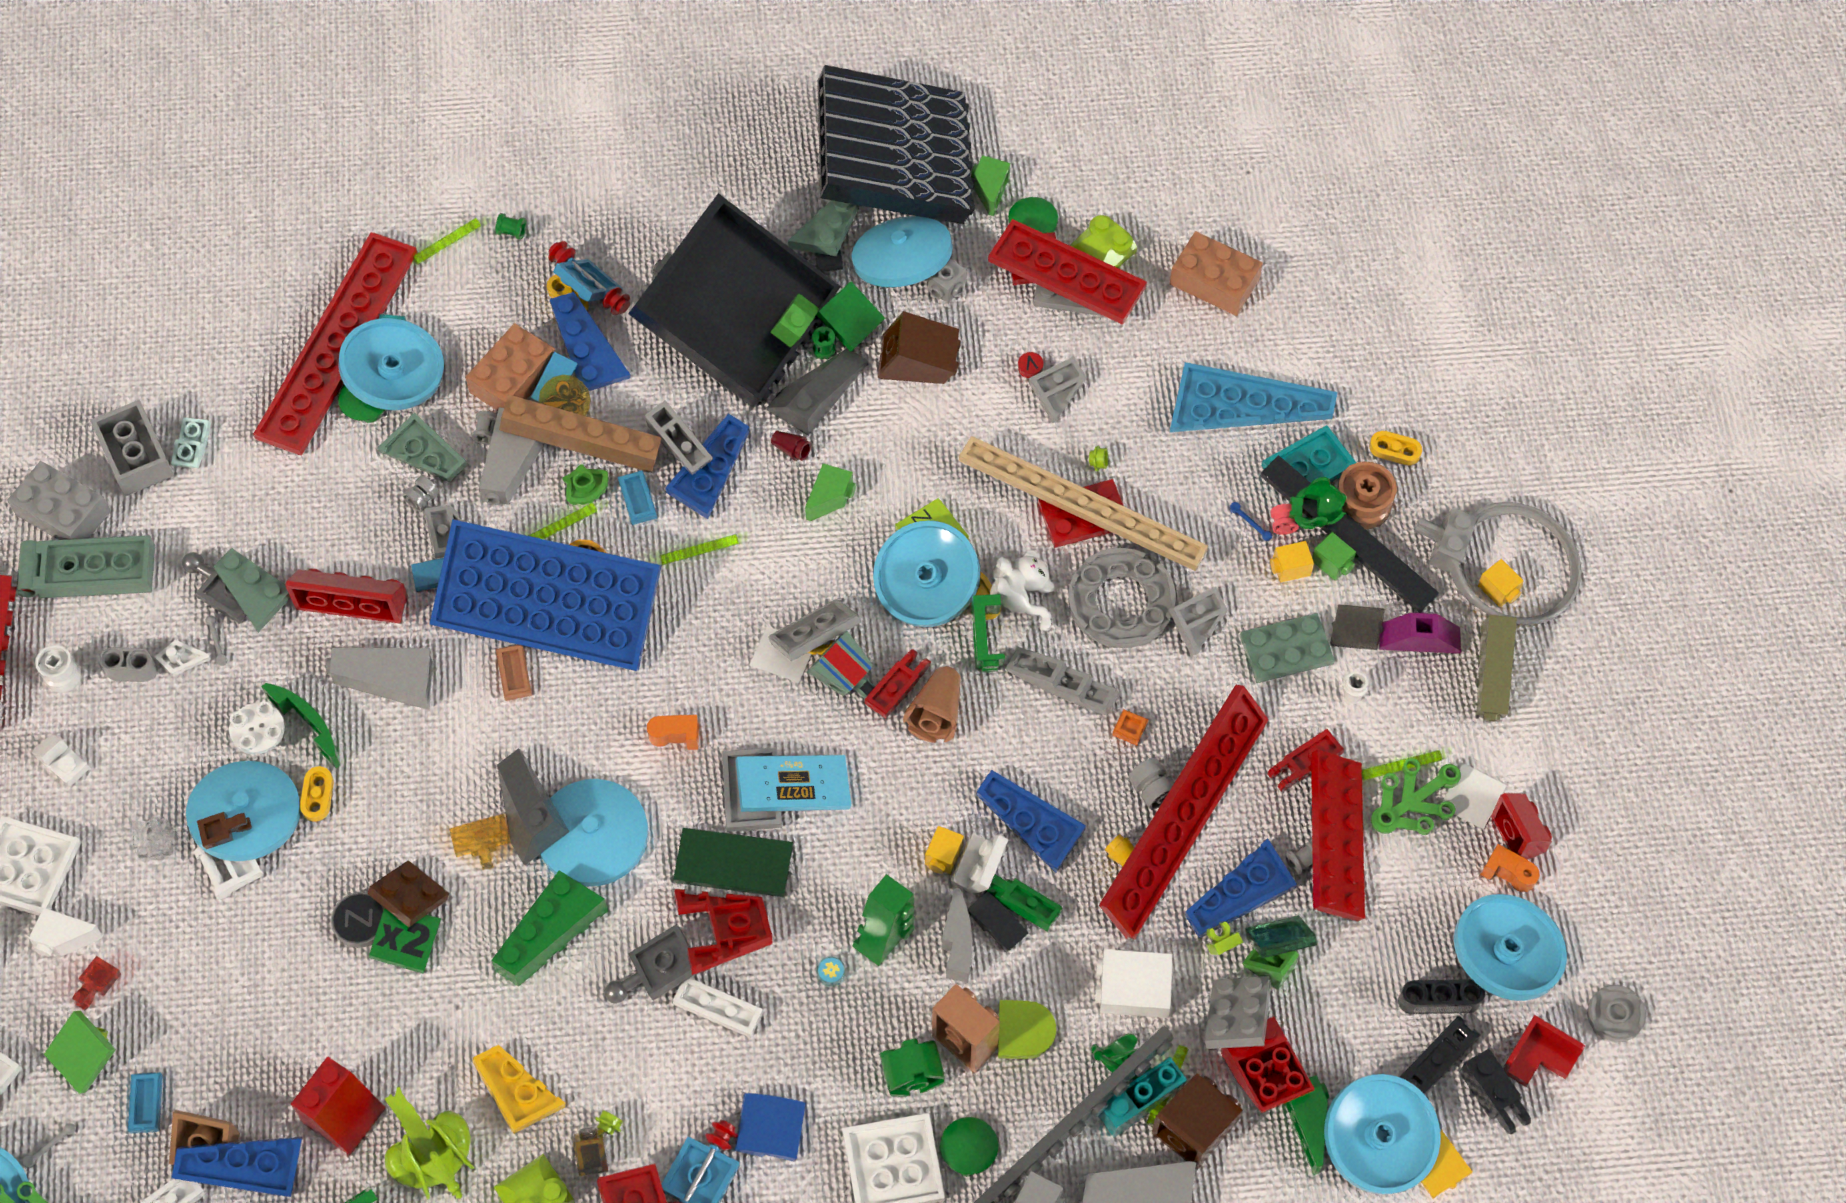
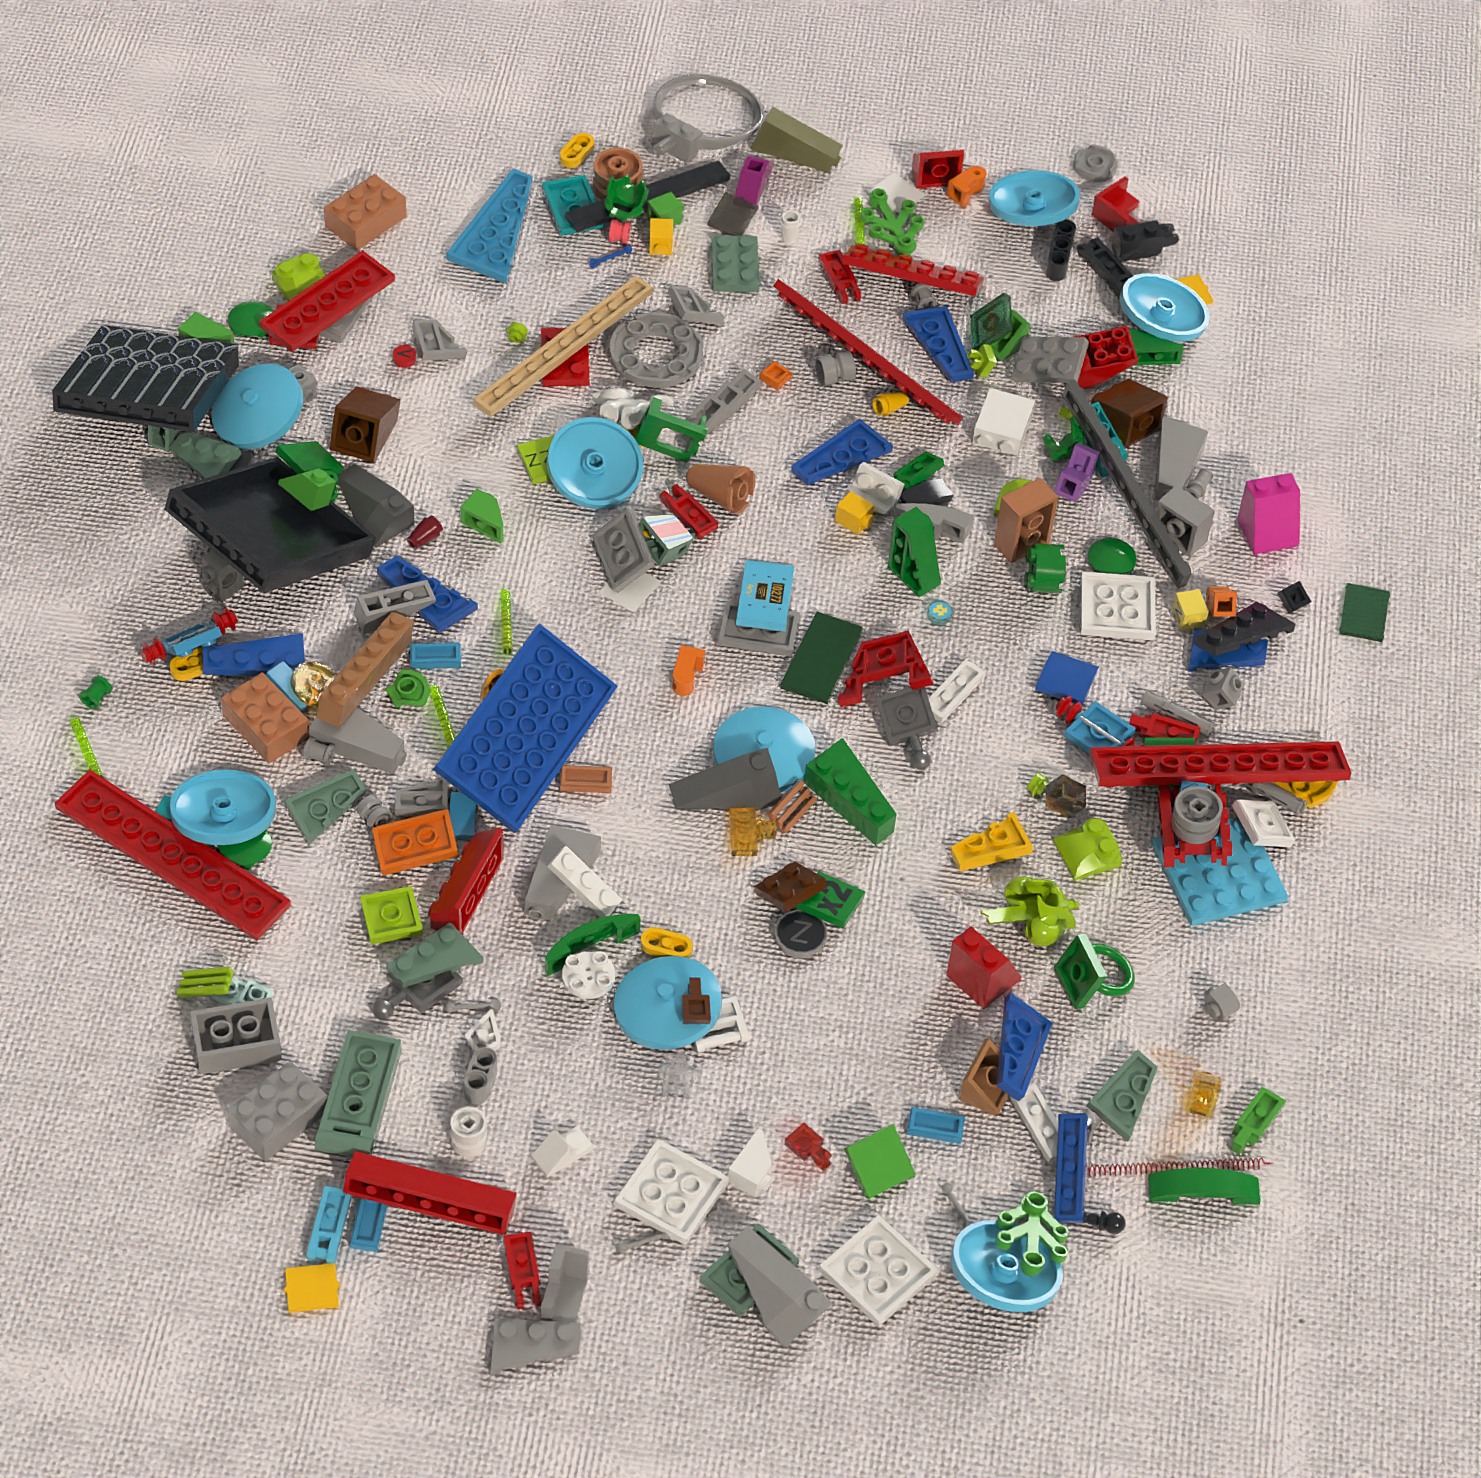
camera: 80 degrees left, 10 degrees down
(181, 408) = (206, 978): none -> lime tile
(303, 540) = (391, 915): none -> lime plate
(365, 696) = (584, 882): none -> white plate
(391, 537) = (415, 842): none -> orange plate
(515, 884) = (804, 794): none -> nougat tile
(1071, 1079) = (1078, 473): none -> medium lavender brick
(1501, 583) = (723, 122): yellow brick -> none

